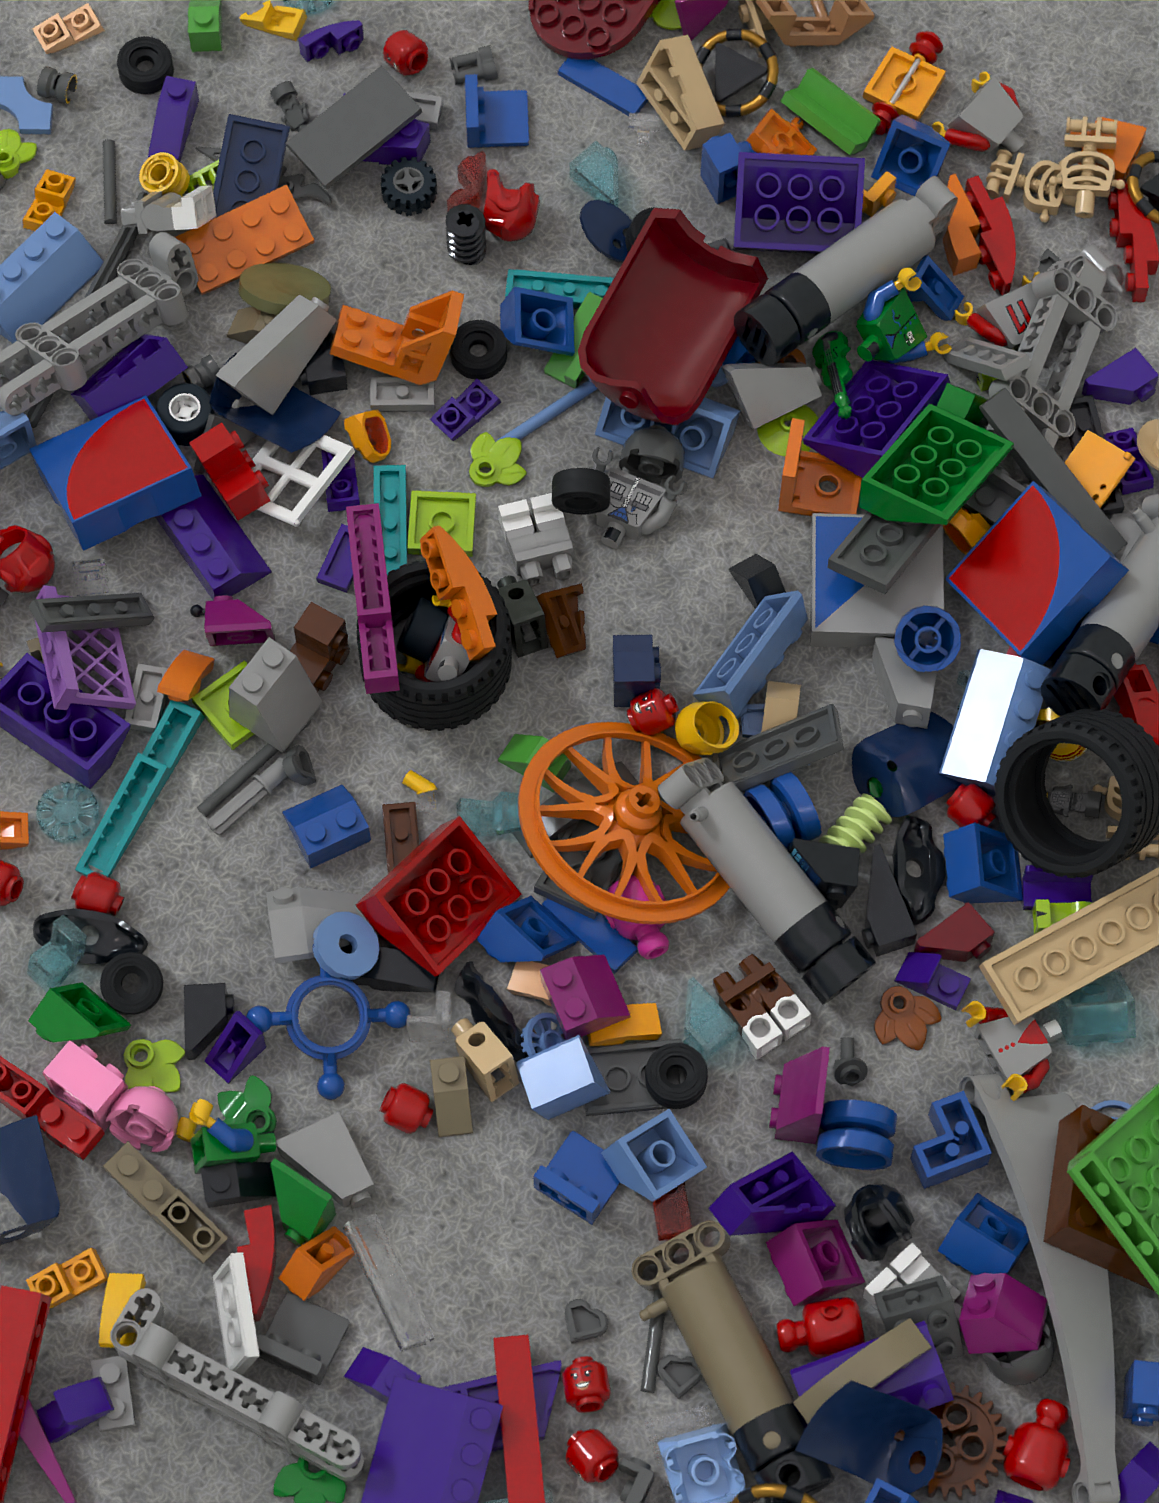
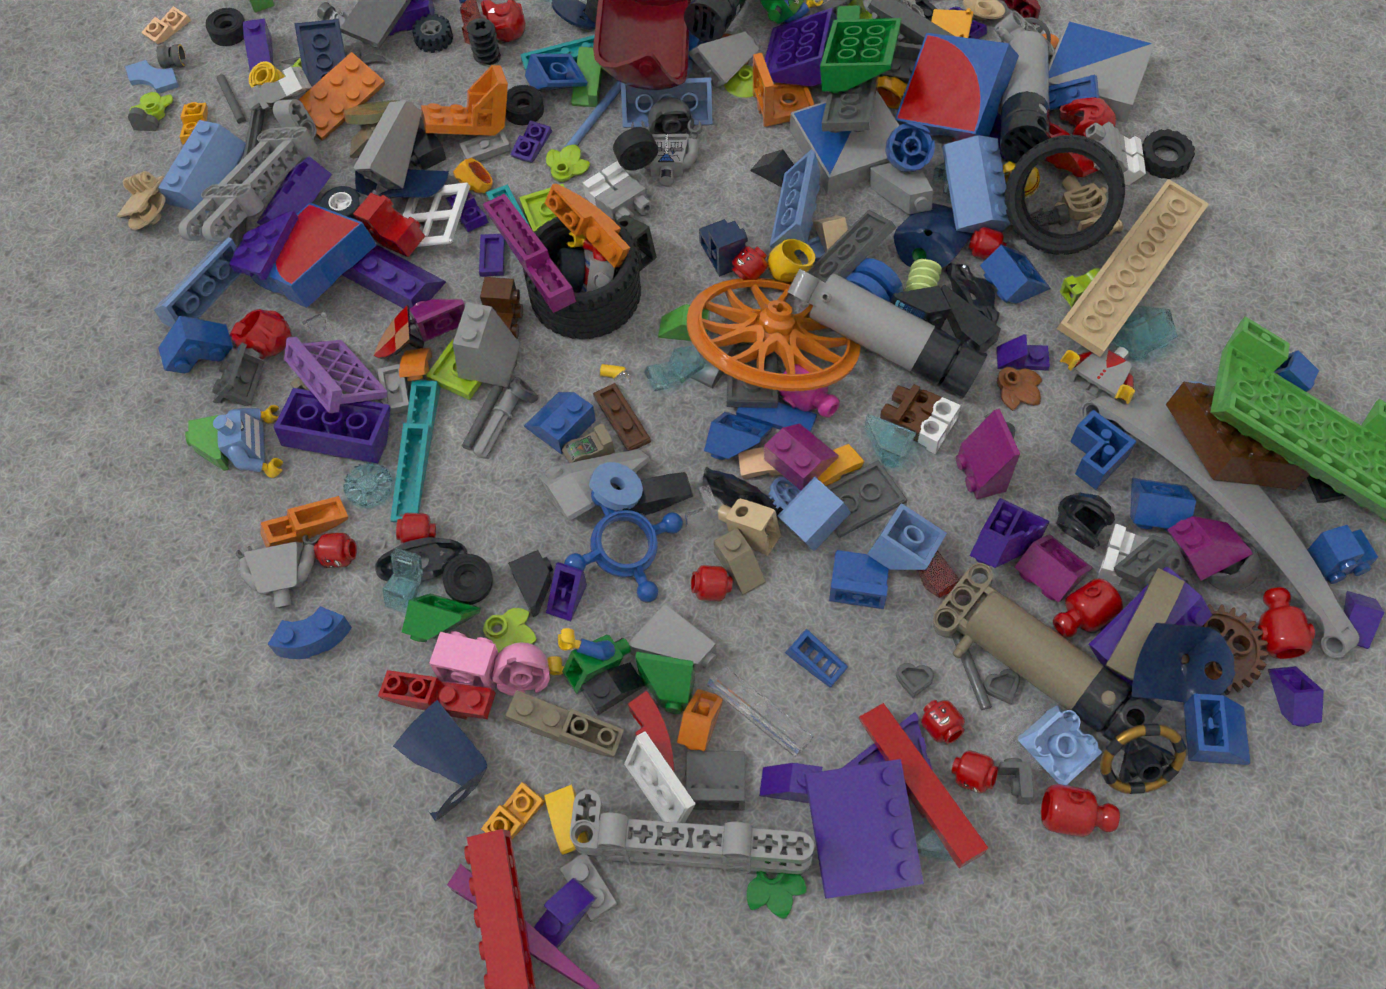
camera: 20 degrees left, 5 degrees down
(63, 440) = (262, 246): none -> dark purple wing
(91, 612) = (328, 344): dark grey tile -> none
(177, 631) = (397, 336): none -> shield
(203, 373) = (345, 178): dark grey wheel -> none
(248, 1106) = (596, 626): green plate -> none
(344, 875) = (589, 446): none -> dark tan leg
(439, 897) = (664, 432): red slope -> none
(461, 1231) = (803, 660): none -> blue slope
(564, 620) = (663, 238): reddish brown wing -> none
(676, 1056) = (896, 469): black tyre -> none
(830, 355) = (759, 33): green piece -> none
(856, 1135) = (1040, 469): blue wheel -> none
(958, 936) = (1027, 319): dark red slope -> none
(1057, 889) = (1064, 266): dark purple panel -> none

